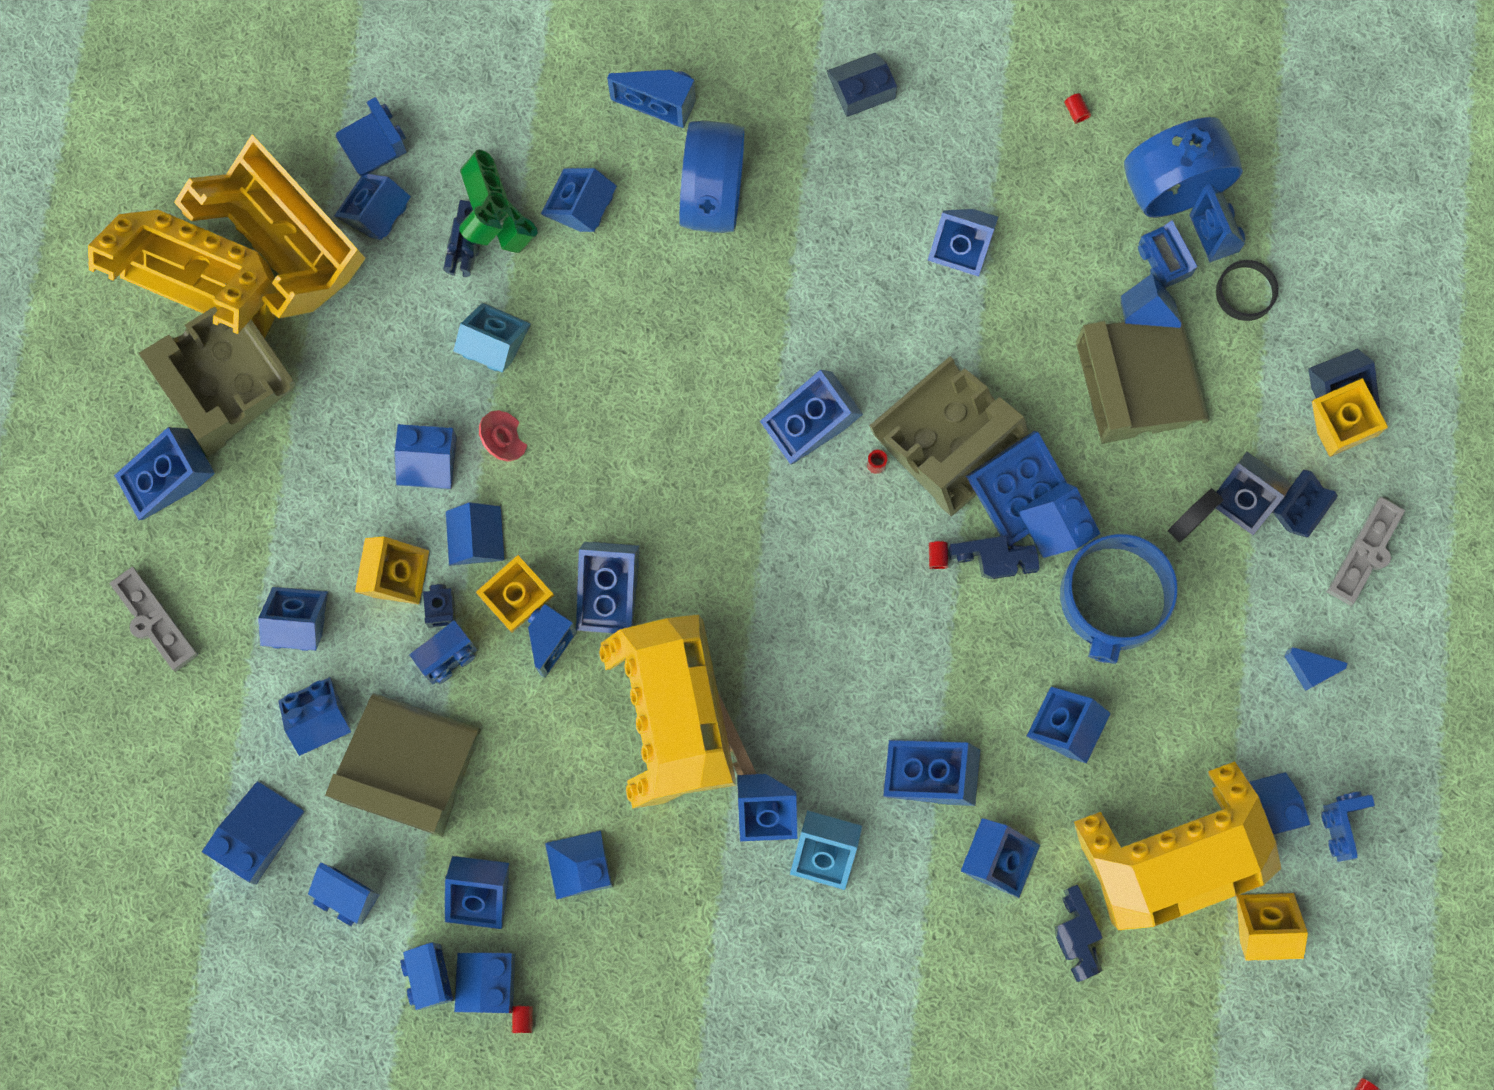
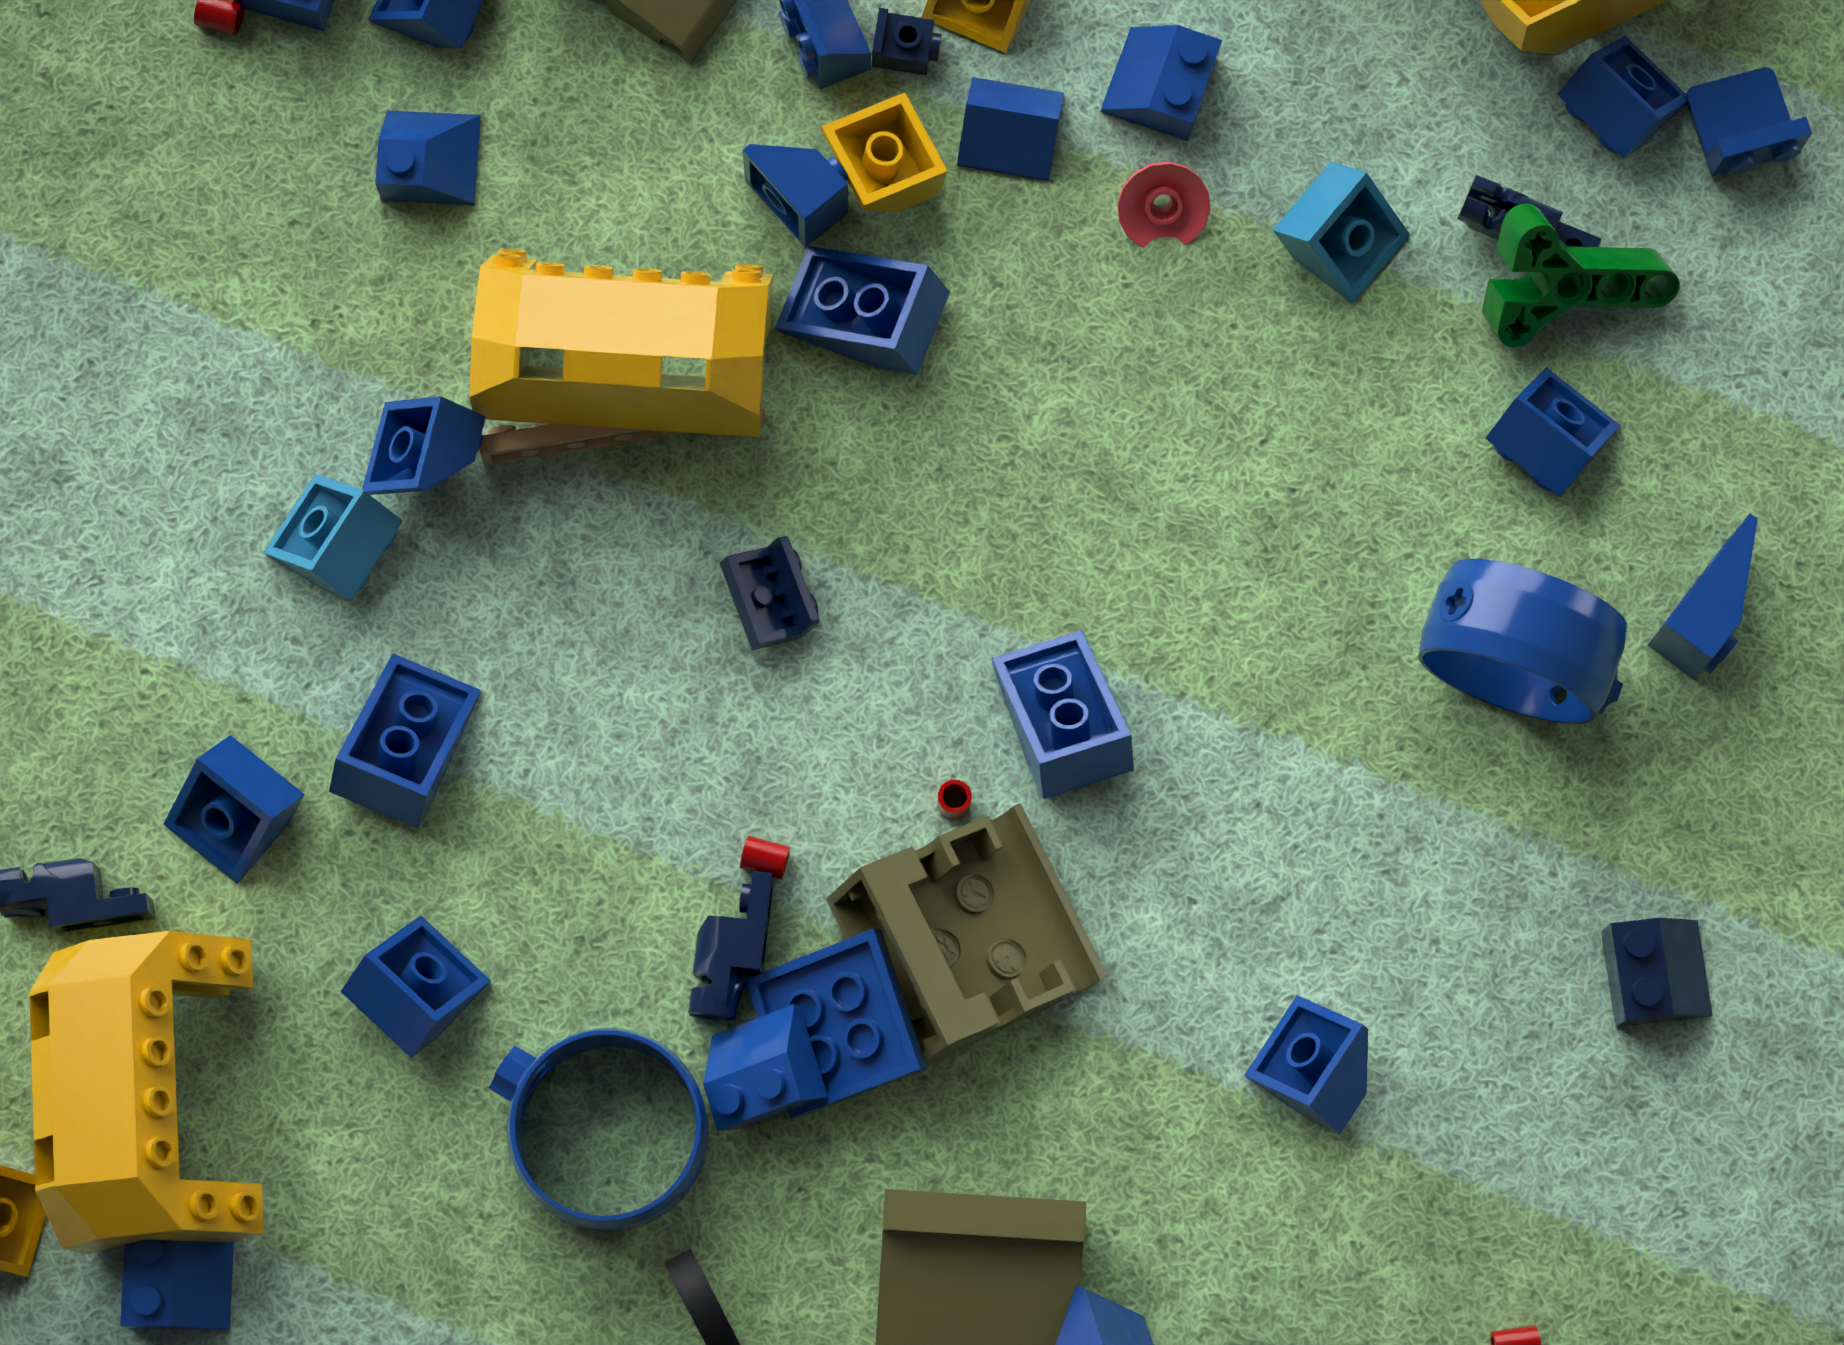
camera: 100 degrees right, 0 degrees up
(789, 591) = (770, 594): none -> dark blue bracket

